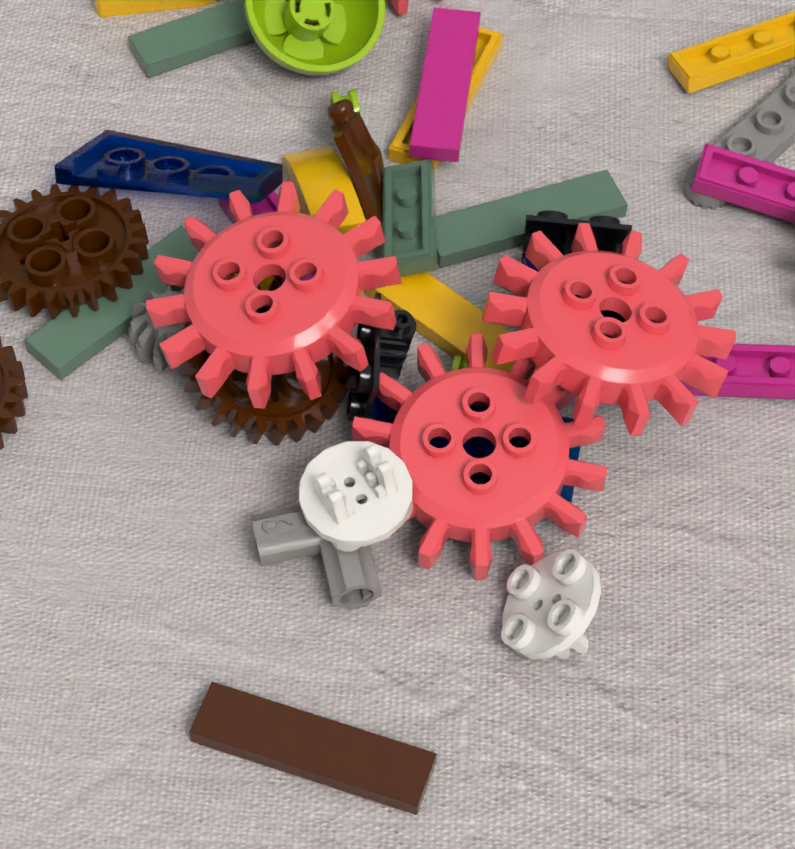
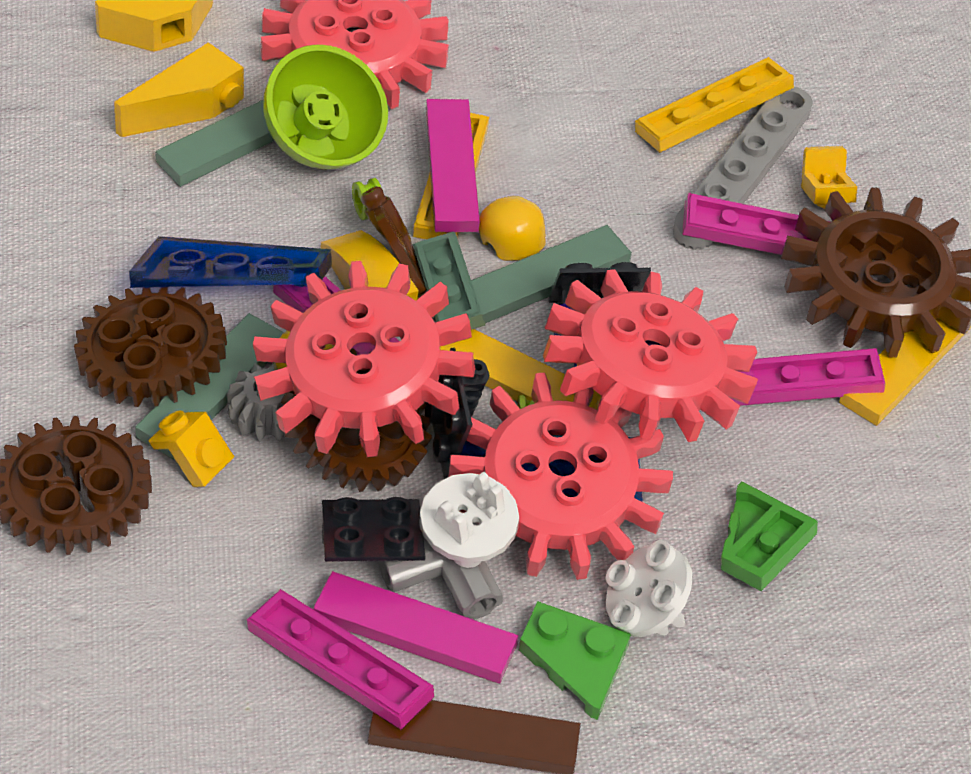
camera: 15 degrees left, 5 degrees down
(79, 368) = (193, 444): none -> yellow bracket
(181, 638) = (341, 658): none -> dark pink tile
(246, 492) = (372, 530): none -> black hinge
(278, 611) = (417, 627): none -> dark pink tile
(454, 668) = (575, 653): none -> bright green wing
(500, 161) = (513, 227): none -> yellow hair
(704, 558) = (763, 537): none -> bright green wing

